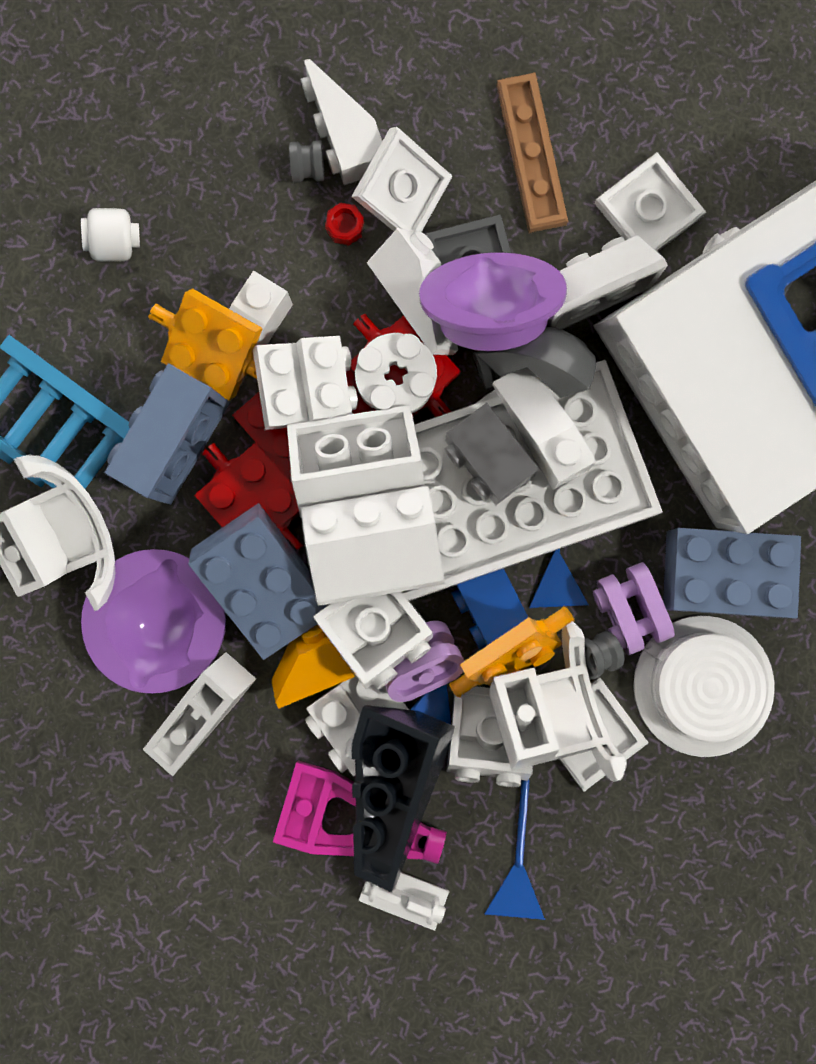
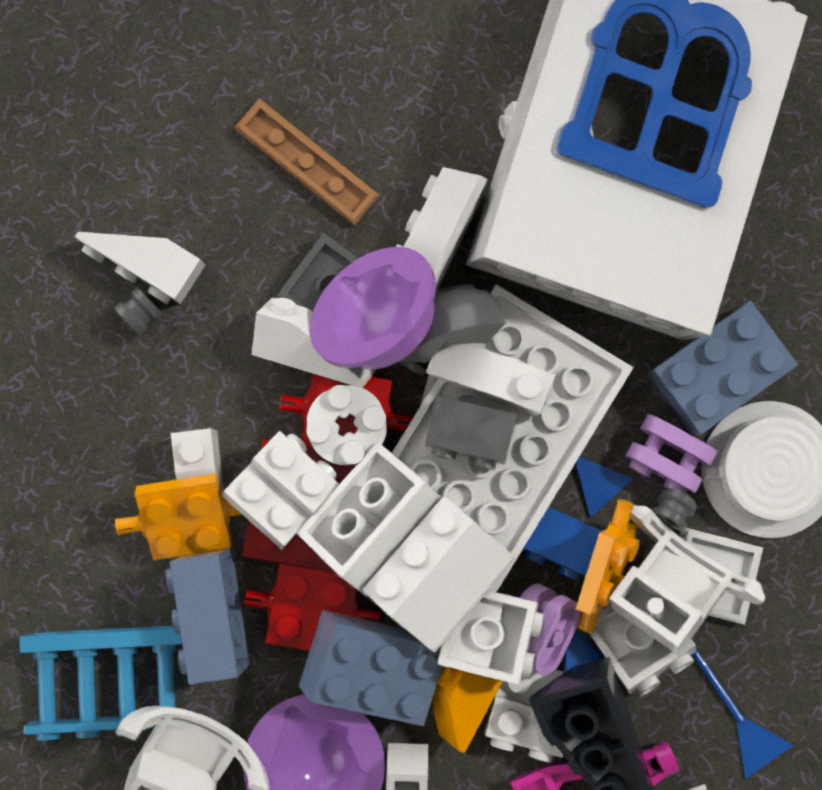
camera: 40 degrees left, 0 degrees up
(109, 234) = (31, 493): white head -> none
(344, 223) = (207, 335): red tile -> none
(401, 183) = (229, 271): white tile -> none
(650, 204) = (432, 131): white tile -> none

